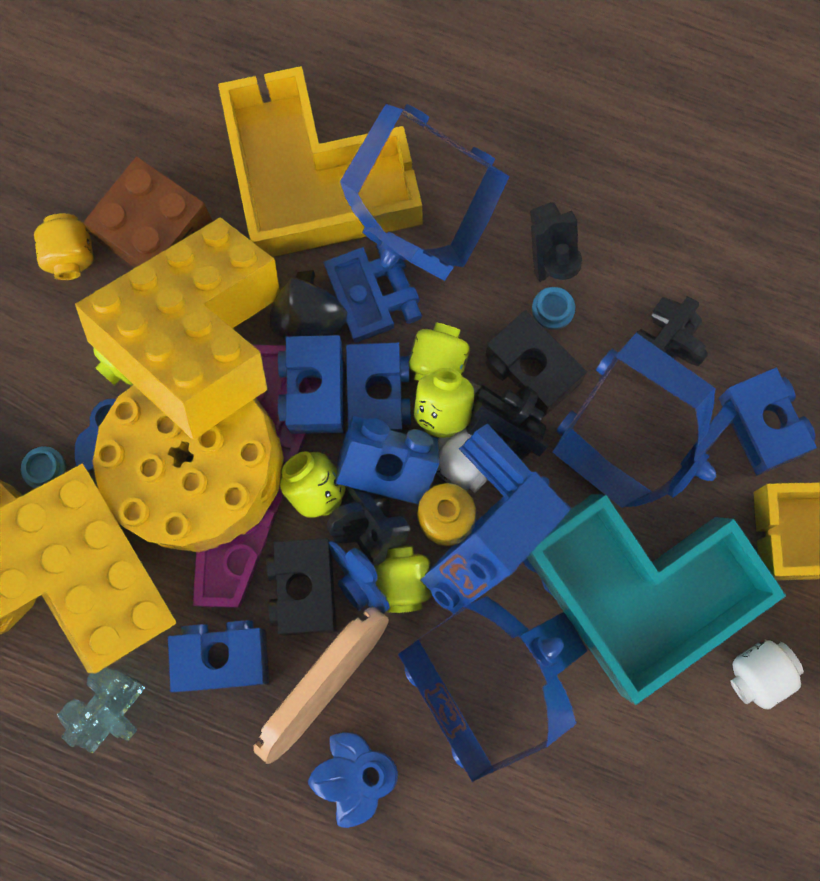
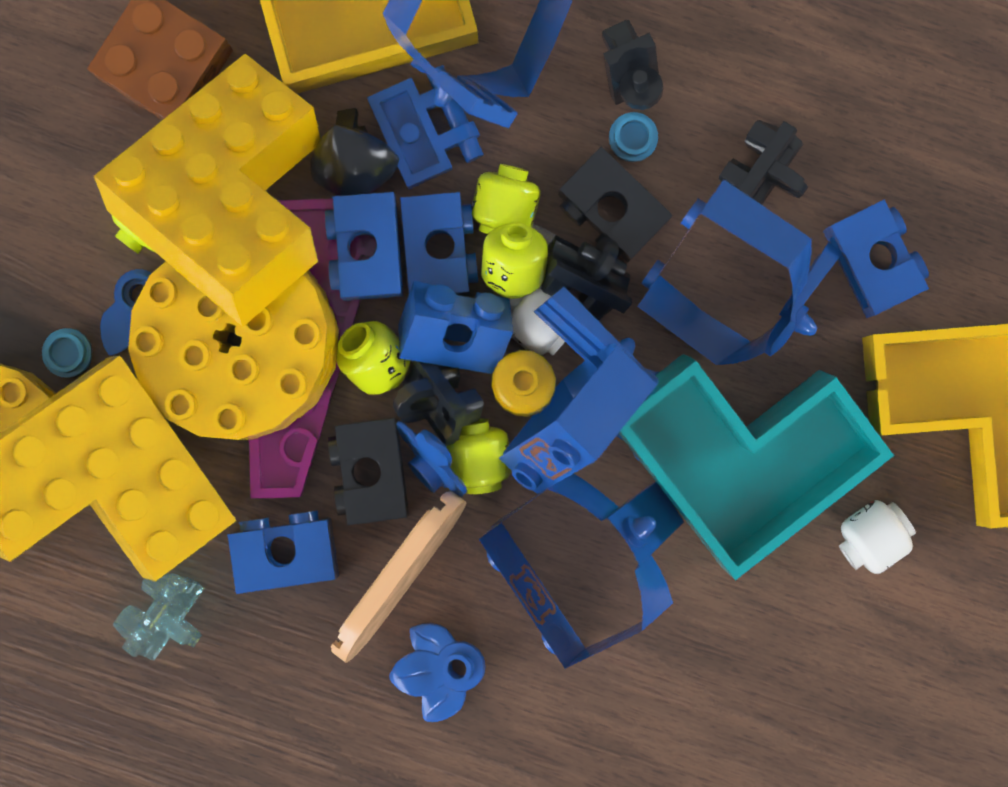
camera: 10 degrees left, 10 degrees up
(63, 246) = (63, 92): yellow head -> none

